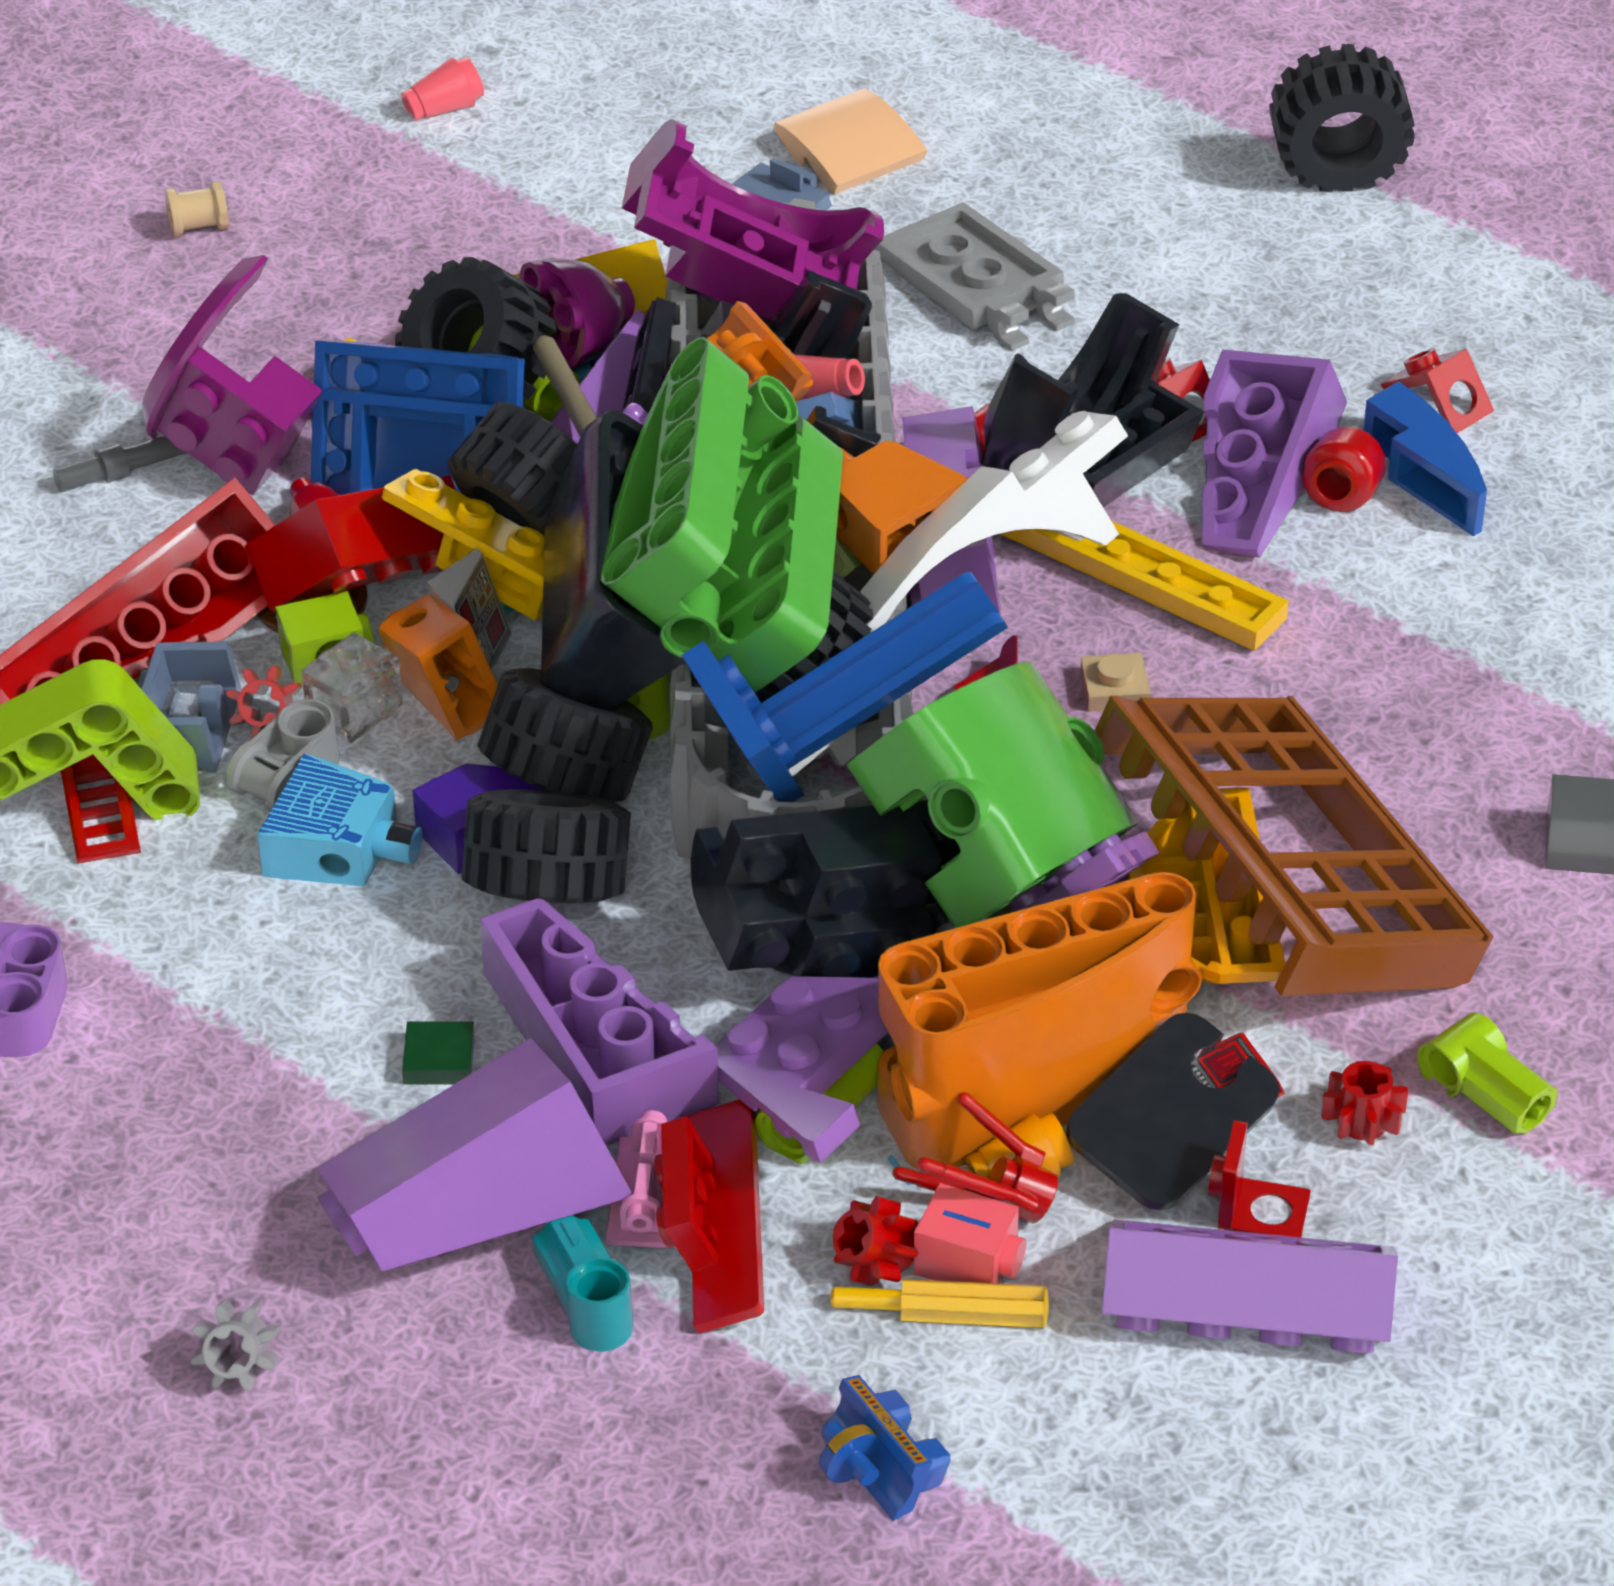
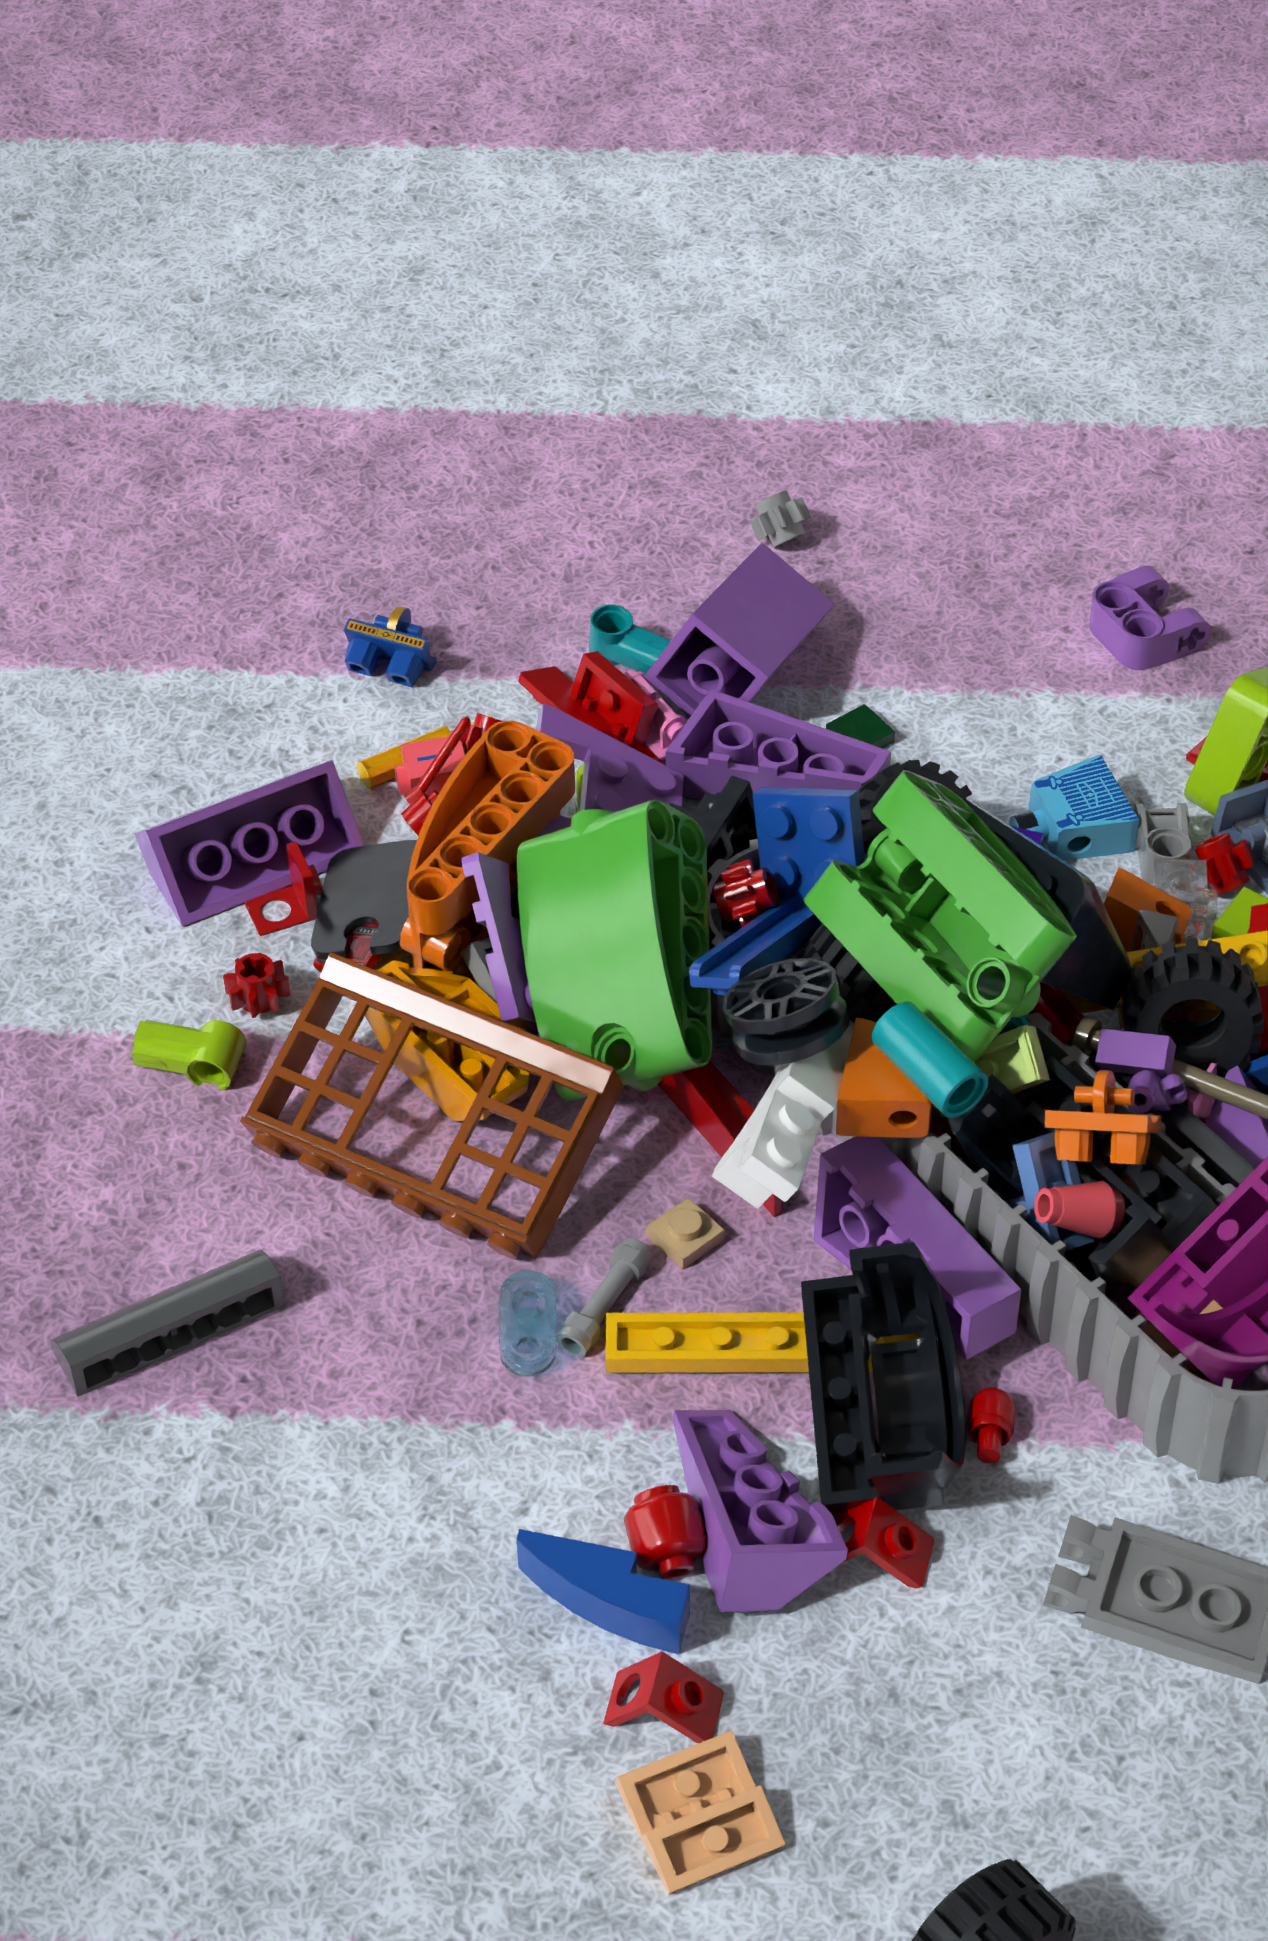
camera: 145 degrees right, 5 degrees up
(829, 748) = (745, 892): none -> red gear
(869, 432) = (929, 1059): none -> teal pin
(962, 488) = (786, 1011): none -> black wheel
(1284, 649) = (582, 1329): none -> light grey bar
(1322, 679) = (528, 1325): none -> clear light blue plate
(1466, 317) = (699, 1812): none -> light nougat slope

